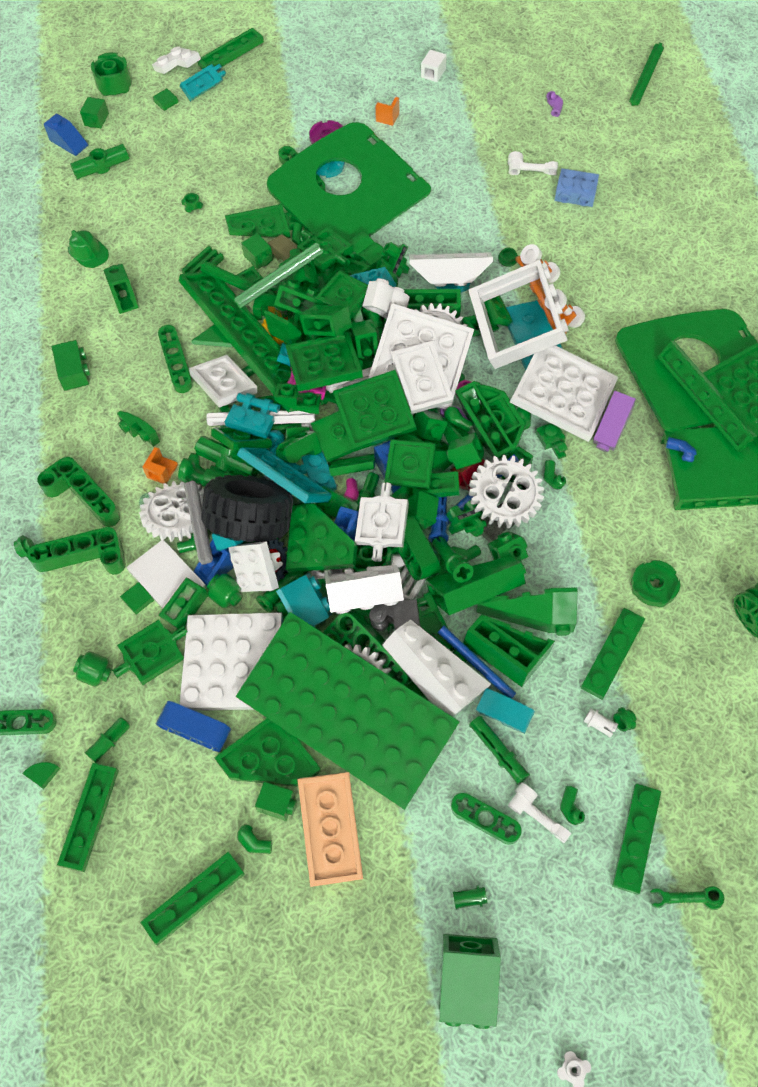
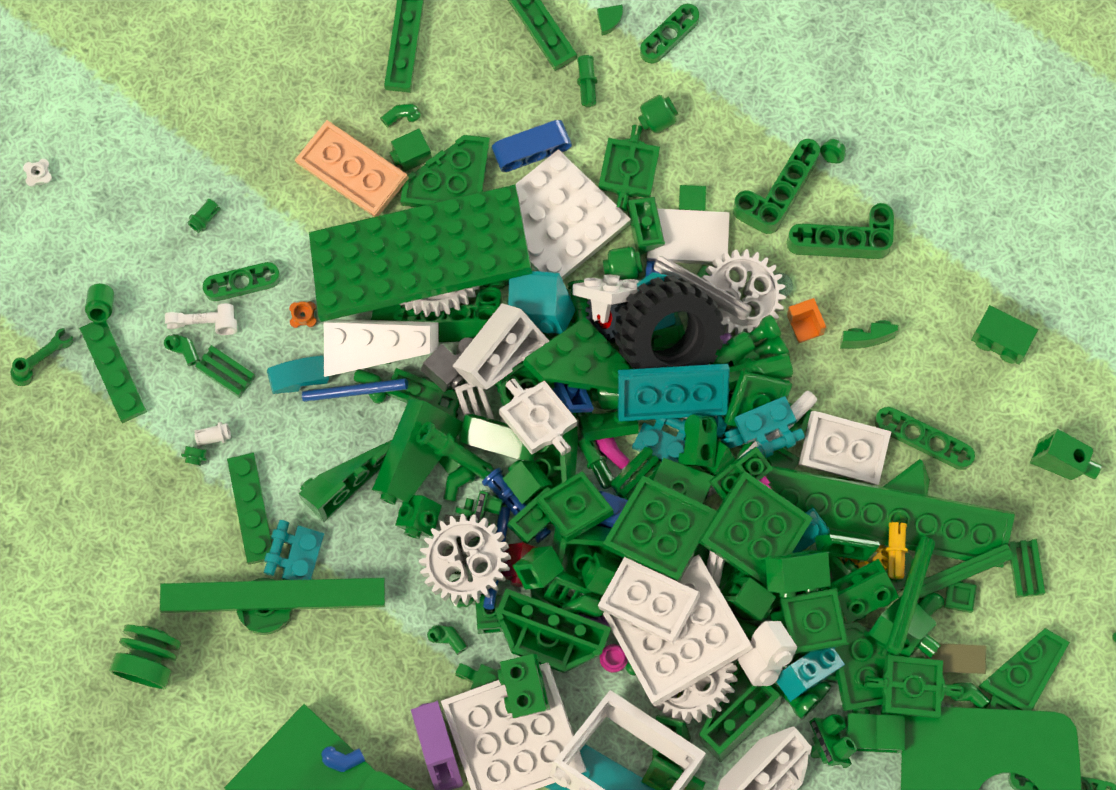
camera: 135 degrees right, 10 degrees up
(257, 251) = (984, 629): green brick -> none
(257, 308) = (896, 550): none -> yellow axle
(463, 746) = (302, 307): none -> orange plate
(469, 981) = (158, 161): slope -> none
(499, 750) = (268, 339): green pin -> none
(507, 649) = (338, 423): green wedge -> none
(538, 390) = (523, 685): none -> green brick
(548, 742) = (207, 358): none -> green tile
(604, 593) = (302, 553): none -> teal plate
(610, 895) = (99, 302): none -> green brick
(649, 580) = (272, 595): none -> green tile

